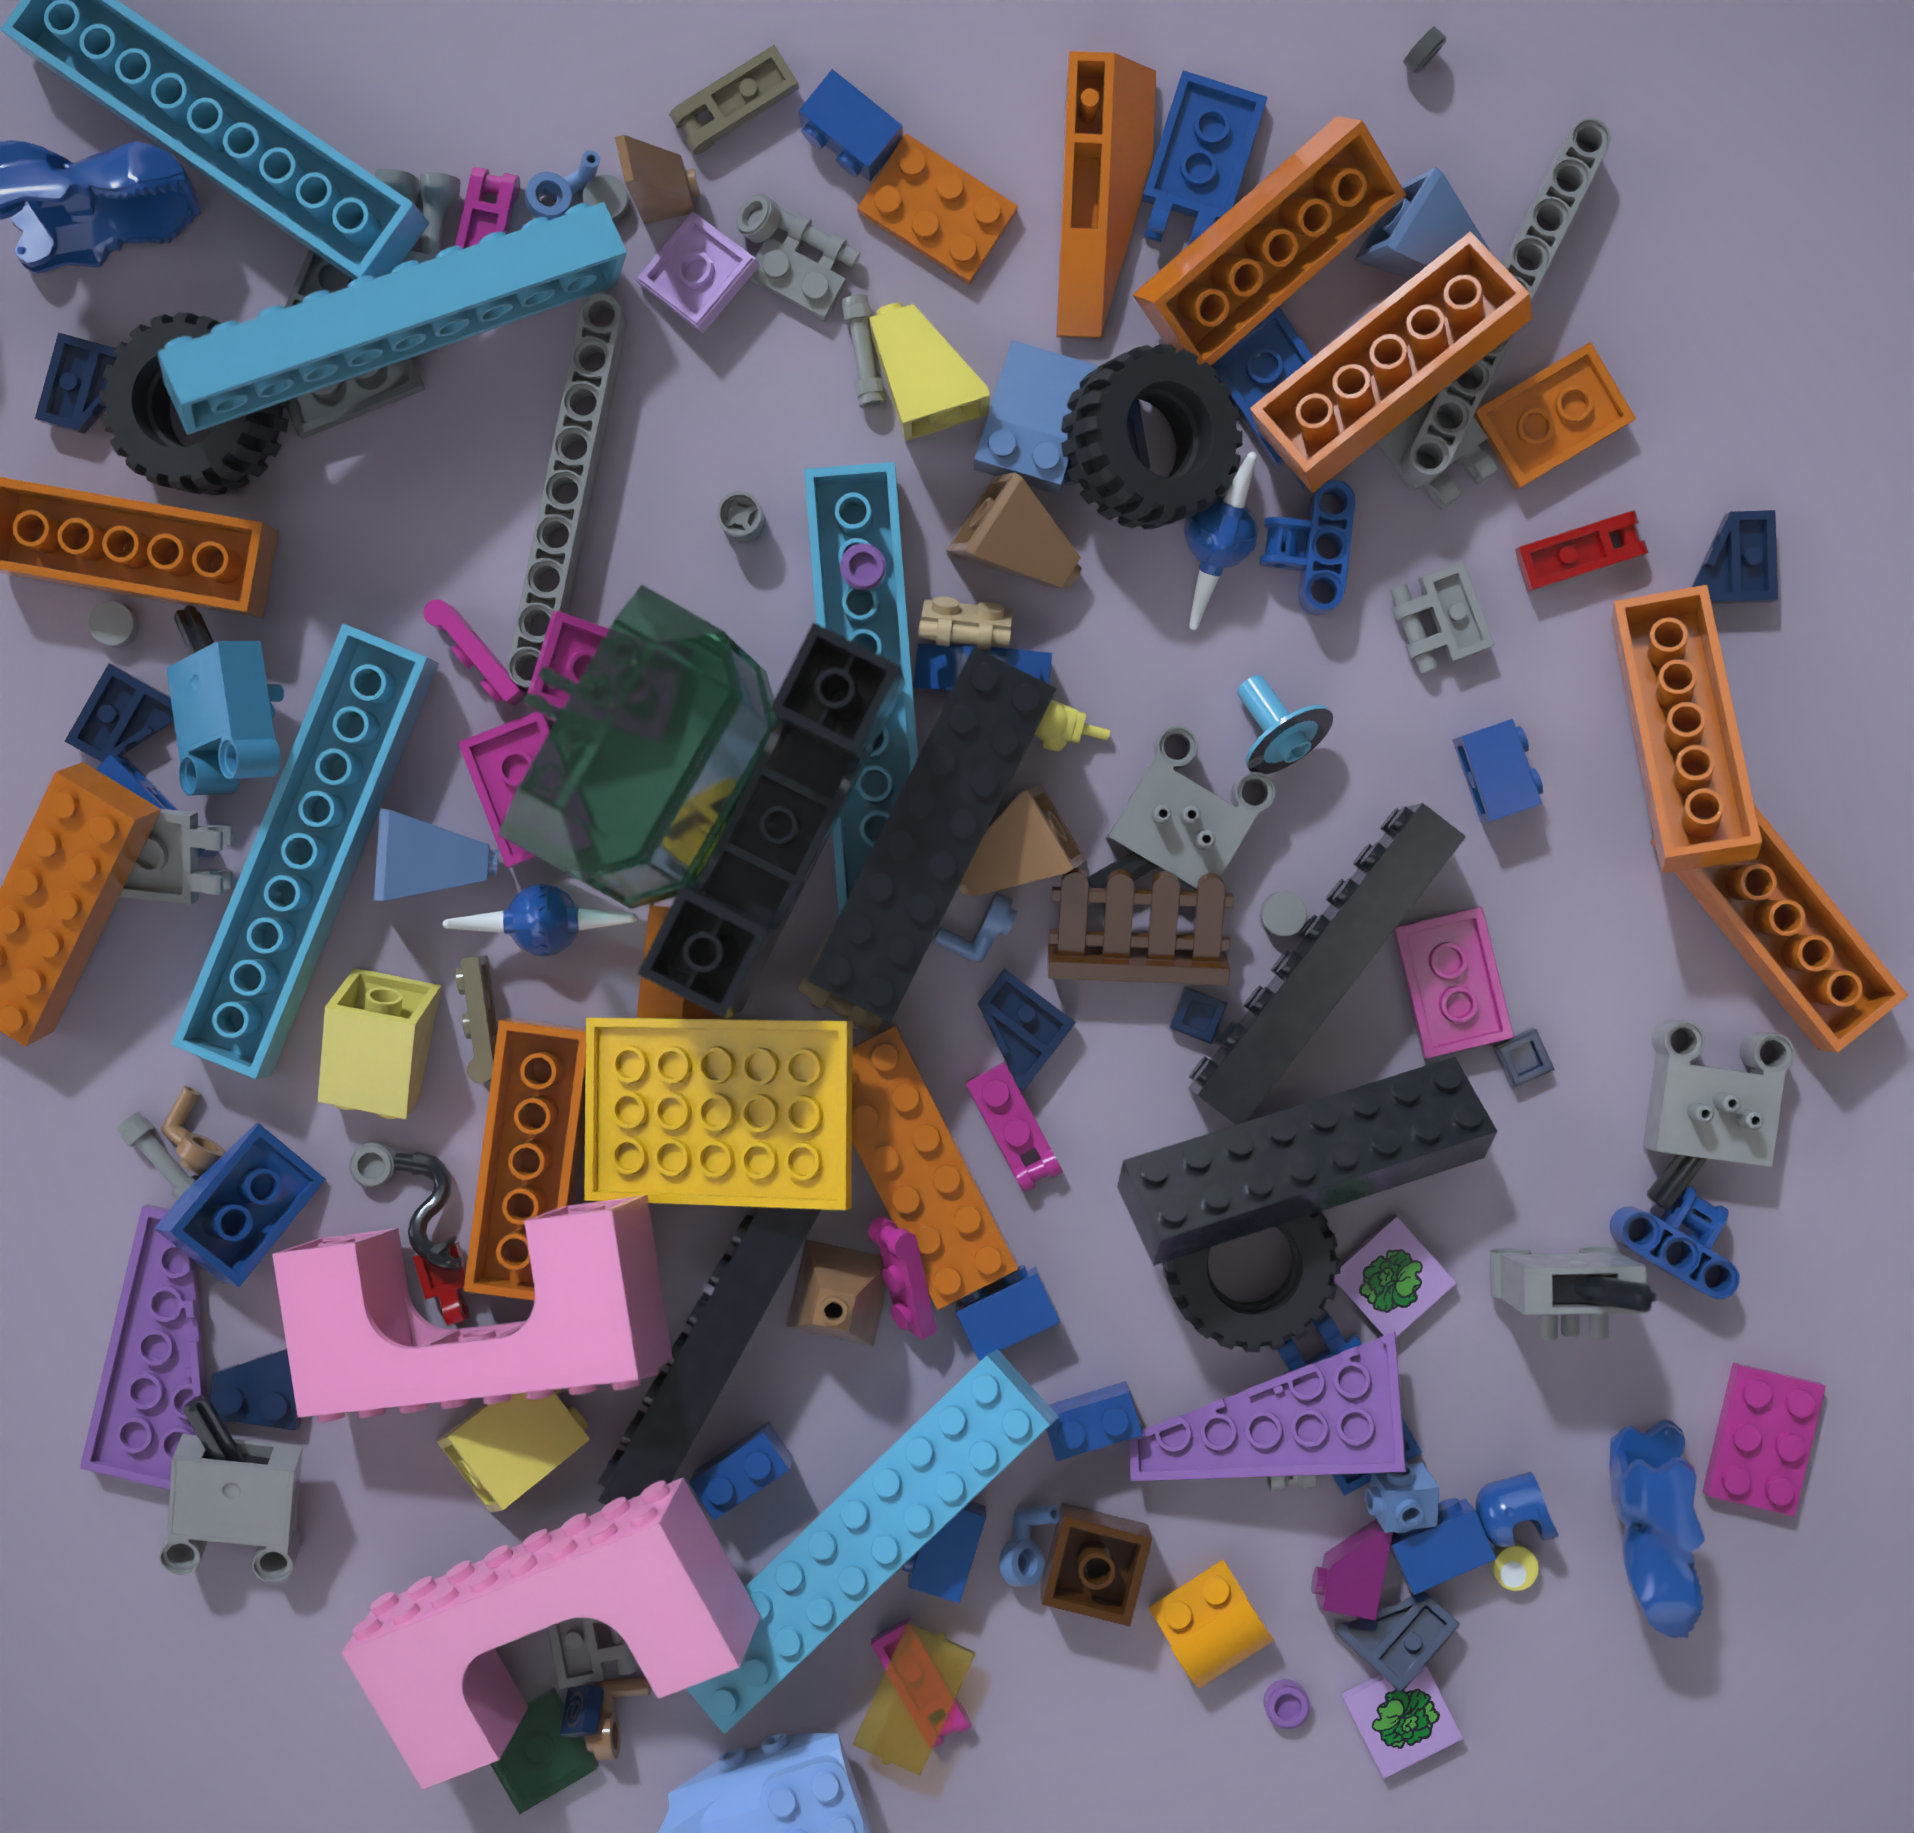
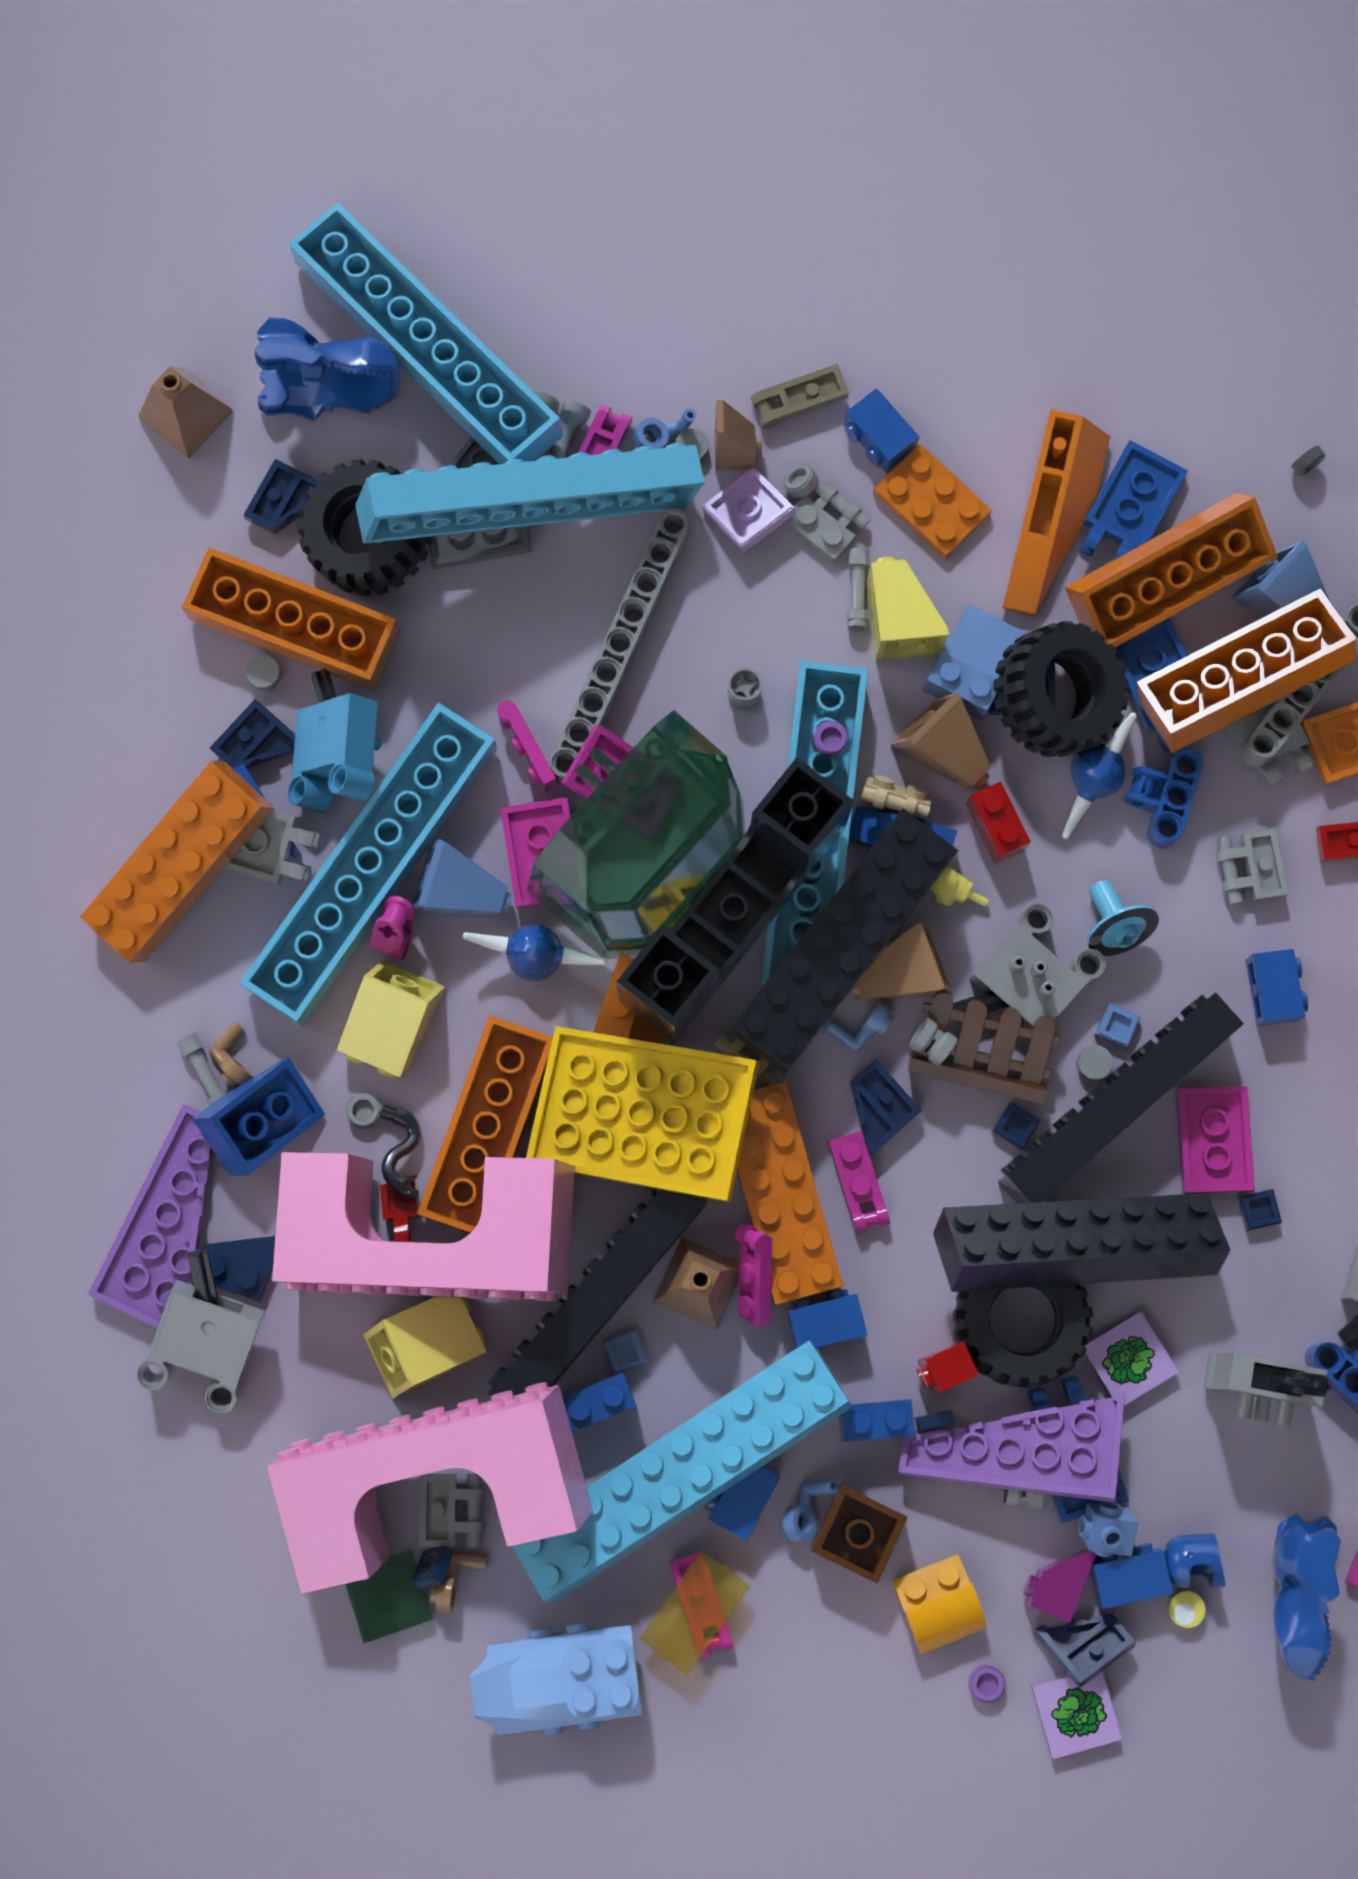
camera: 10 degrees right, 10 degrees down
(356, 930) = (393, 930): none -> dark pink piece
(480, 1020) = (470, 1017): dark tan plate -> none
(765, 1397) = (625, 1352): none -> medium blue tile
(1071, 938) = (932, 1042): none -> light grey wheel
(1103, 628) = (998, 822): none -> red brick
(1163, 1405) = (934, 1420): none -> dark blue tile
(1166, 1344) = (946, 1368): none -> red brick
(1304, 860) = (1117, 1026): none -> medium blue tile

